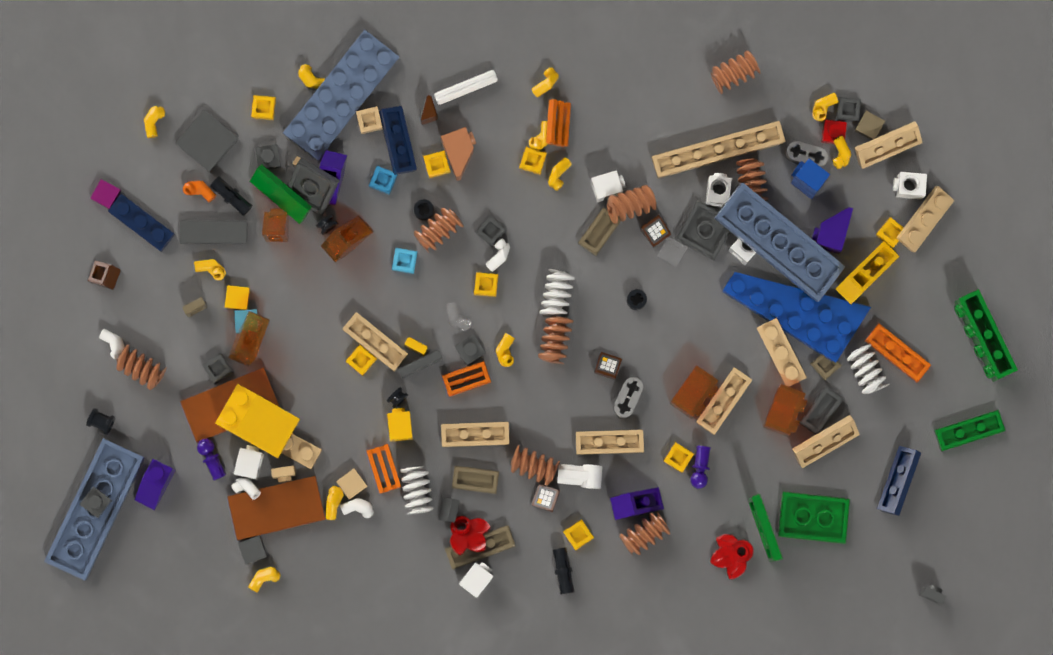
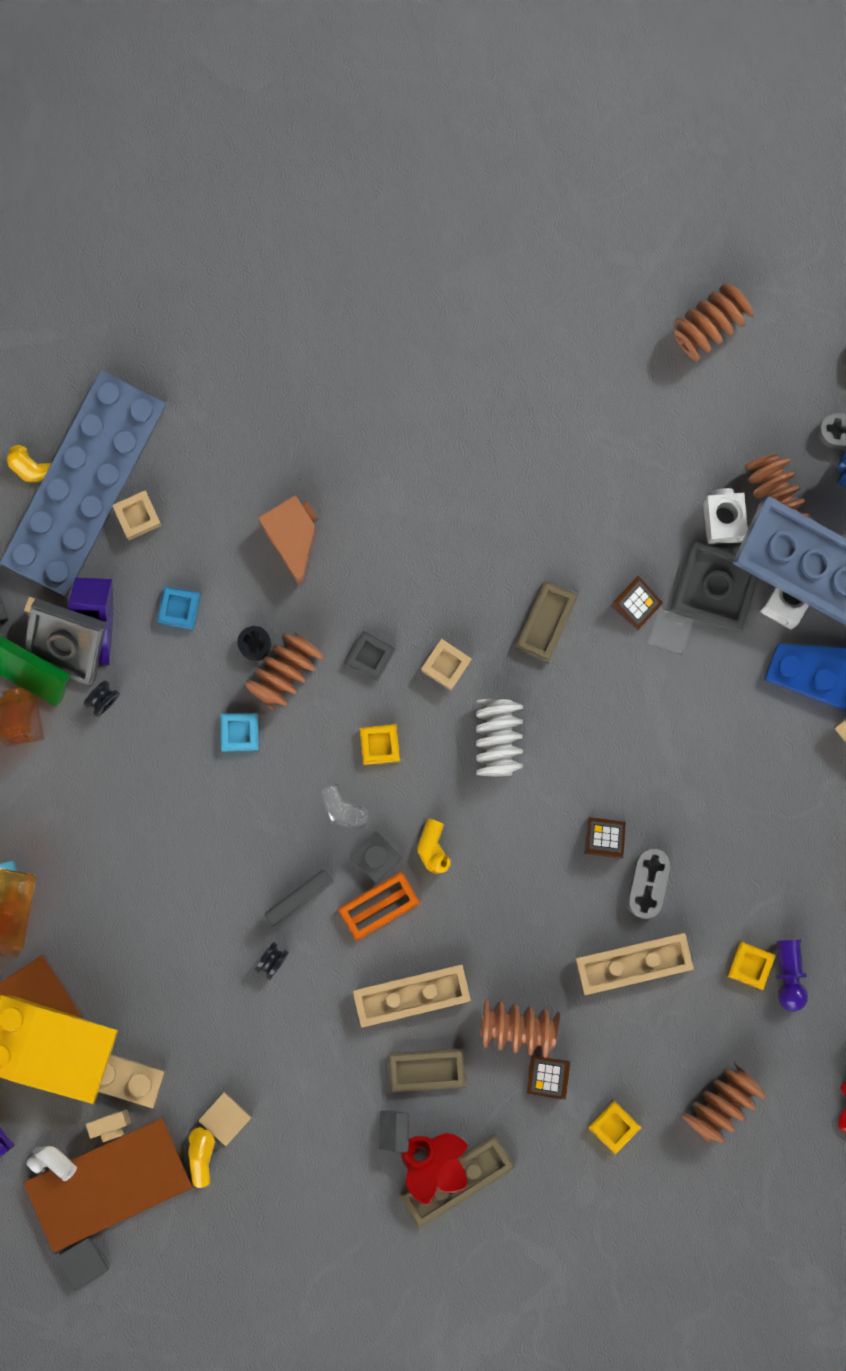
camera: 10 degrees left, 0 degrees up
(249, 462) = (47, 1120): white brick -> none
(262, 576) = (109, 1303): yellow arm -> none
(346, 238) = (137, 715): clear orange slope -> none
(358, 505) = (242, 1152): white arm -> none
(361, 360) = (200, 909): yellow tile -> none
(375, 341) = (217, 875): tan plate -> none
(378, 450) = (287, 1110): orange tile -> none
(397, 140) = (189, 538): dark blue plate -> none
(400, 425) = (285, 1005): yellow brick -> none
(416, 346) = (286, 870): yellow tile -> none
(416, 490) = (335, 1109): white piece -> none
(429, 112) = (231, 482): reddish brown slope -> none
(436, 164) = (260, 564): yellow tile -> none
(465, 87) = (283, 431): white axle -> none
(476, 579) = (463, 1238): white brick -> none
(501, 255) = (395, 692): white arm -> none
(533, 160) = (415, 528): yellow tile -> none
(534, 244) = (446, 664): none -> tan plate
(539, 141) = (425, 489): yellow arm -> none
(547, 84) = (413, 401): yellow arm -> none
(555, 339) = (511, 812): nougat piece -> none
(556, 172) = (457, 539): yellow arm -> none
(561, 123) = (448, 459): orange tile -> none
(563, 571) = (602, 1193): black pin -> none
(585, 476) = (606, 1028): white piece -> none
(607, 185) = (545, 545): white brick -> none
(631, 202) = (589, 567): nougat piece -> none
(632, 294) = (636, 729): black bush -> none
(636, 503) = (699, 1057): dark purple slope -> none
(694, 392) = (756, 853): clear orange brick -> none
(718, 149) = (710, 451): tan plate -> none
(724, 401) = (806, 858): tan plate -> none

